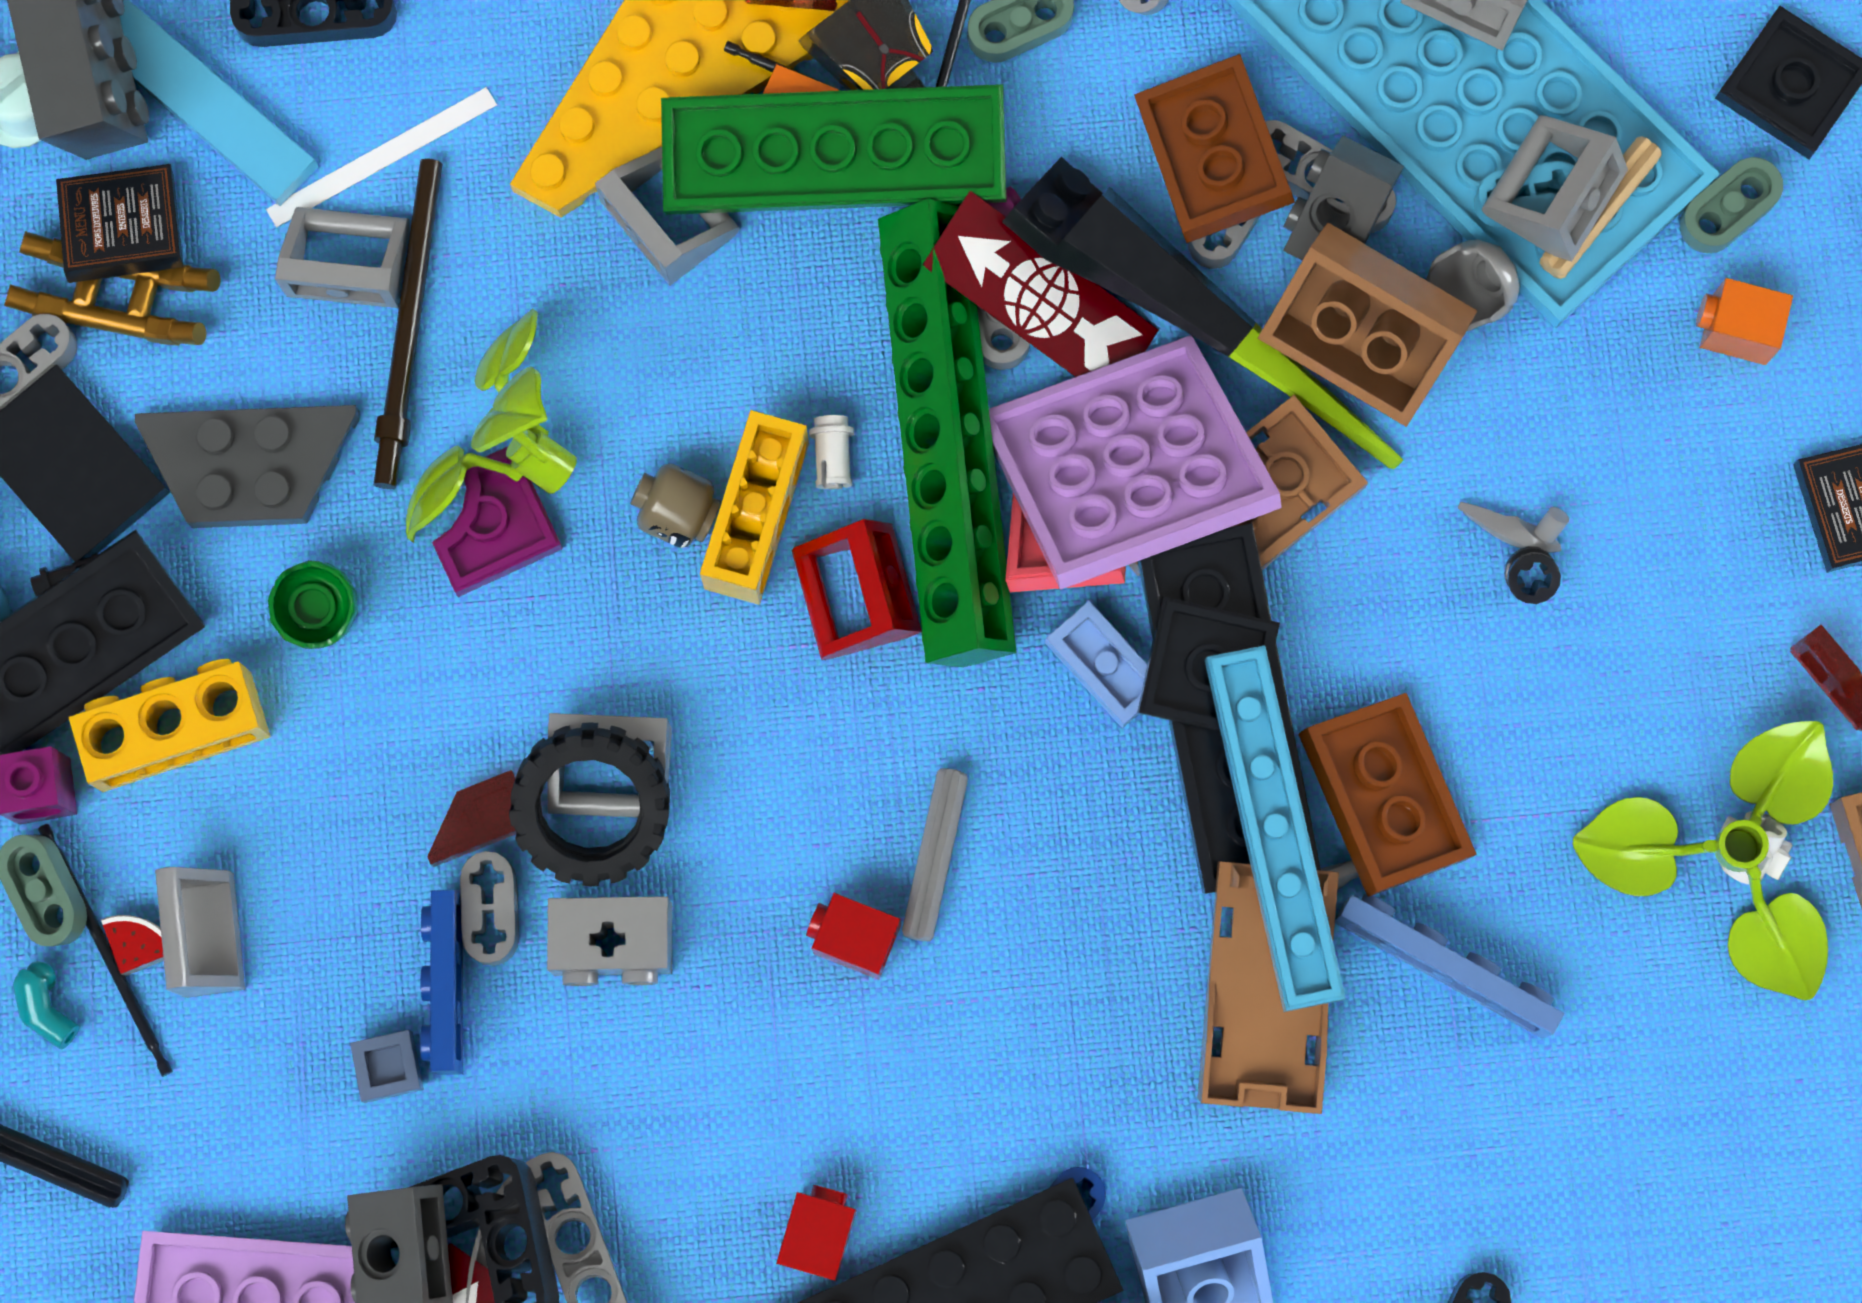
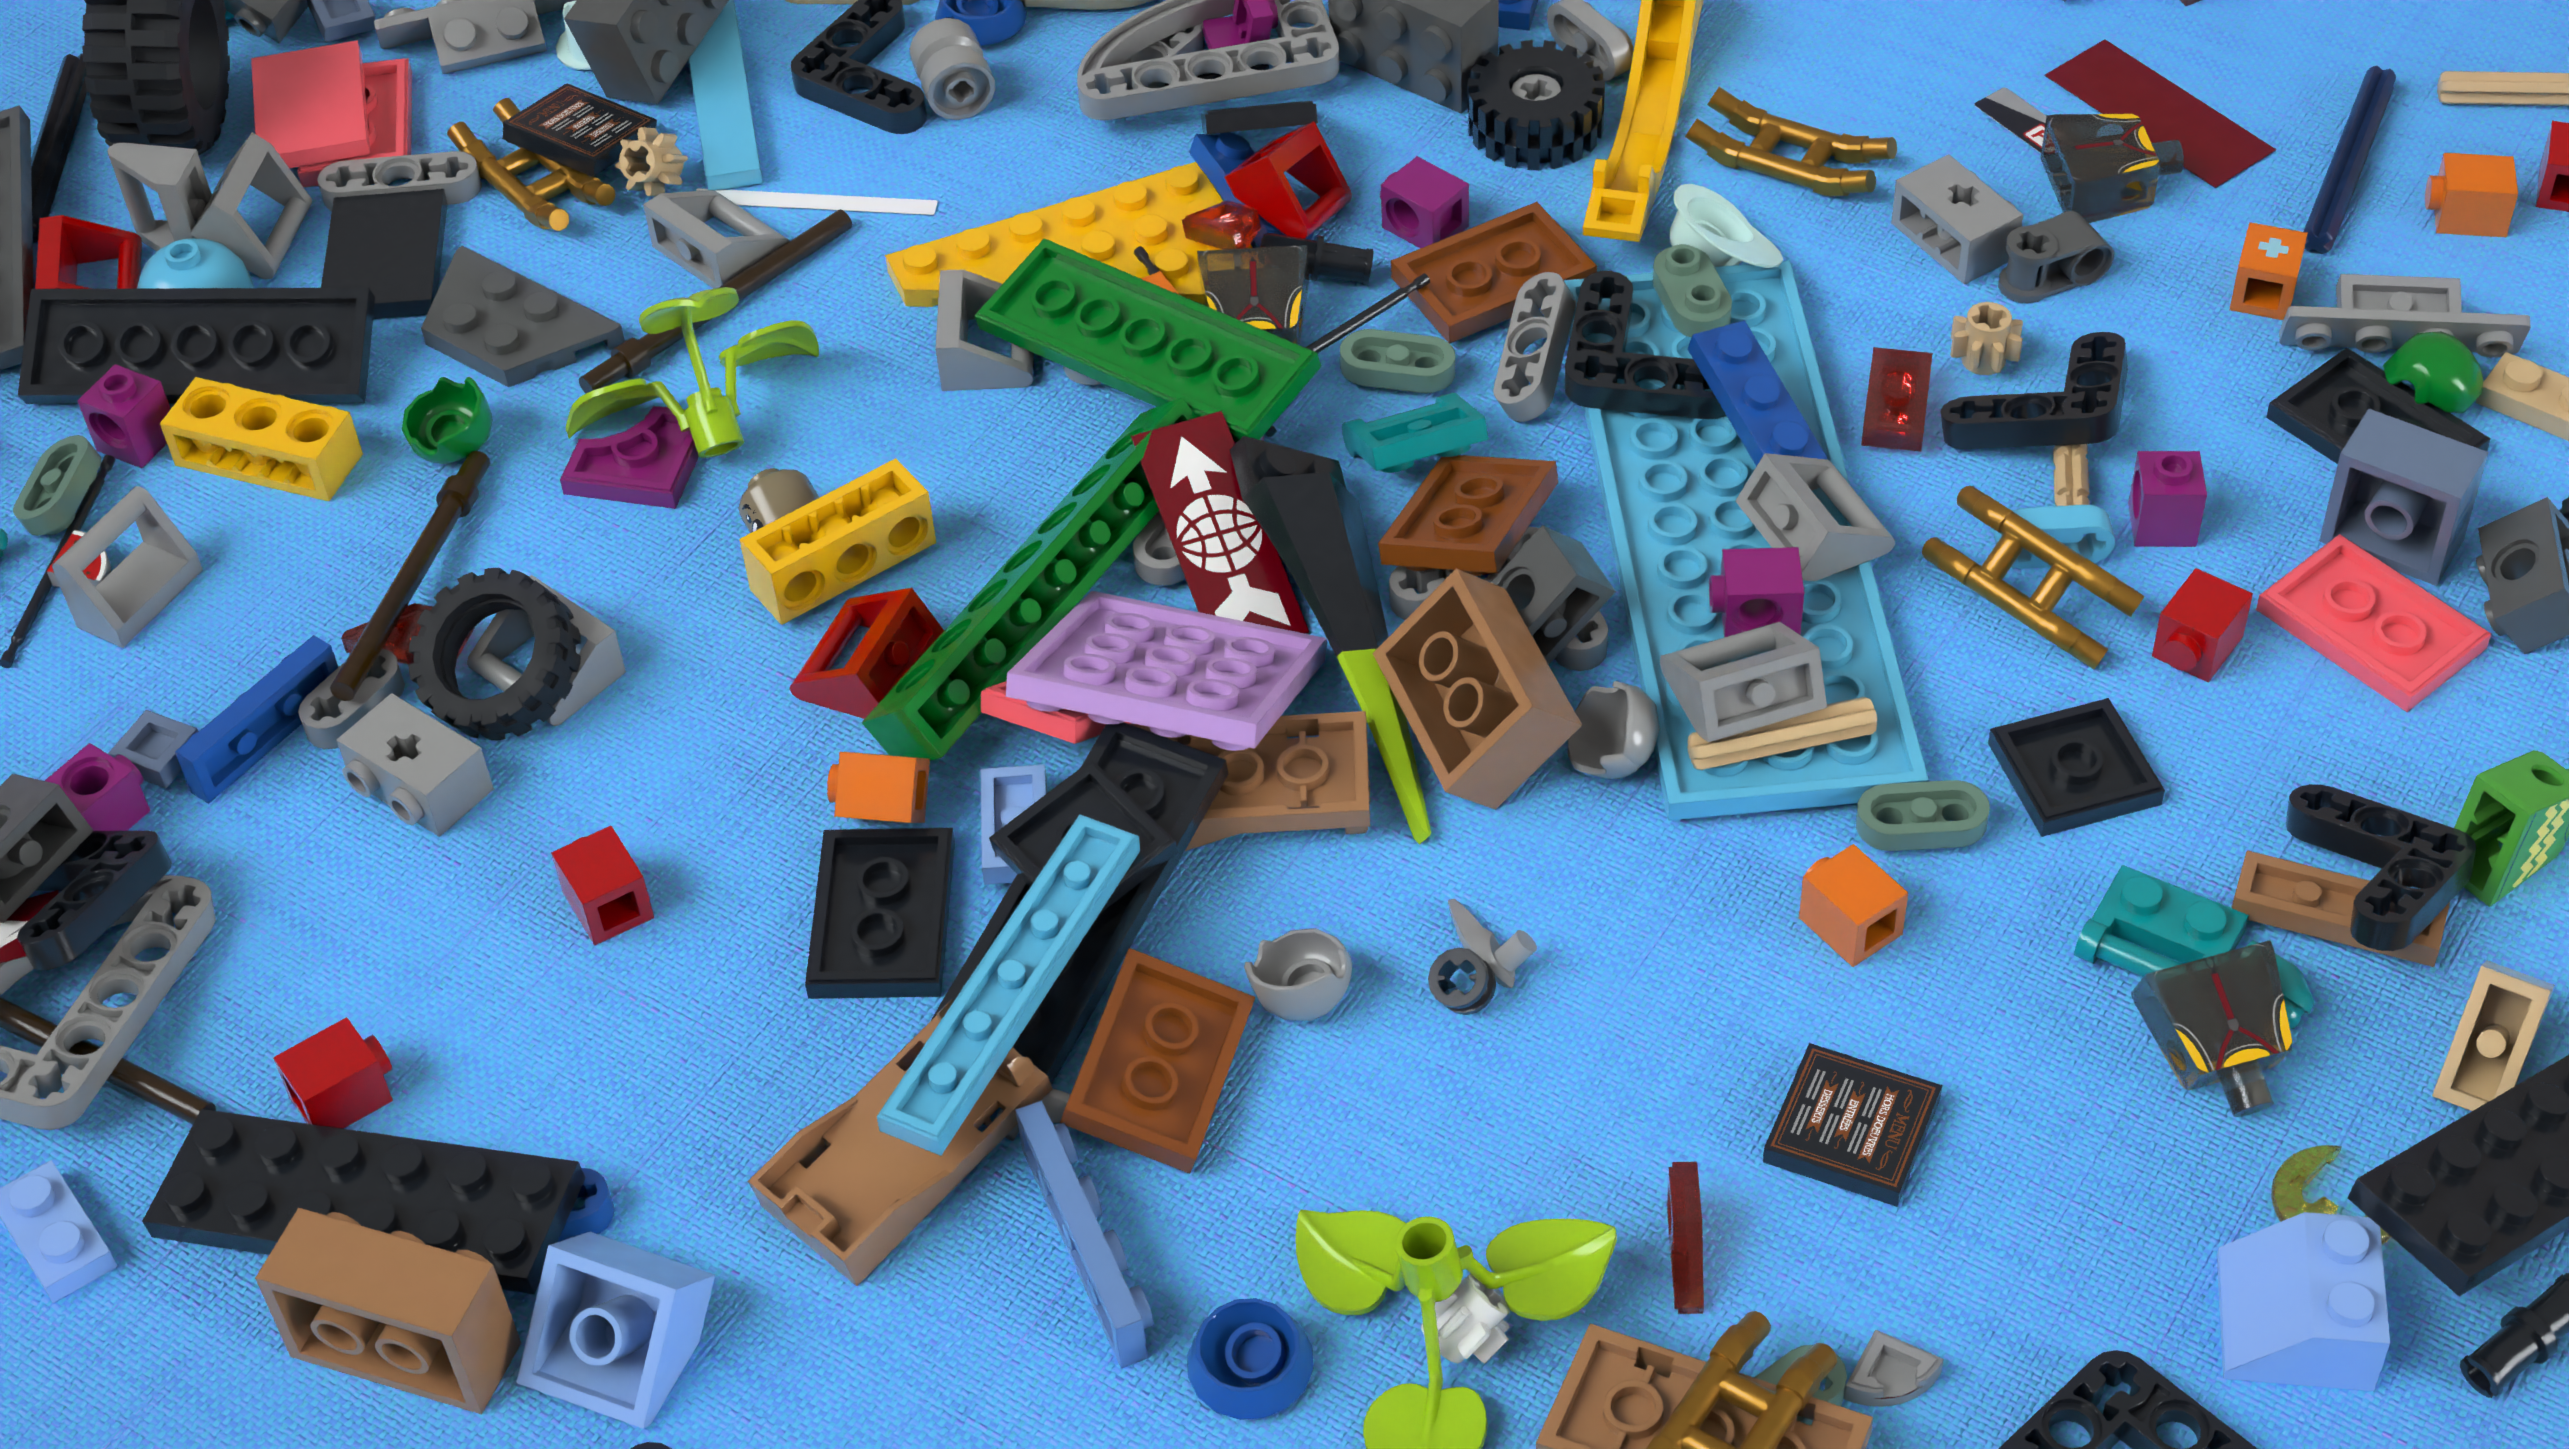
camera: 40 degrees right, 30 degrees down
(220, 219) = (651, 161): none -> tan gear
(388, 669) = (453, 502): none -> dark brown bar
(403, 1169) = (103, 789): none -> magenta brick
(832, 451) = (956, 542): white pin -> none
(935, 854) = (731, 876): light grey axle -> none
(990, 709) = (879, 787): none -> orange brick
(1068, 804) = (881, 913): none -> black tile
(1112, 95) = (1399, 439): none -> teal plate
(1422, 650) = (1300, 974): none -> light grey hair
(1496, 89) = (1758, 589): none -> magenta brick
(1629, 957) = (1249, 1359): none -> blue hat

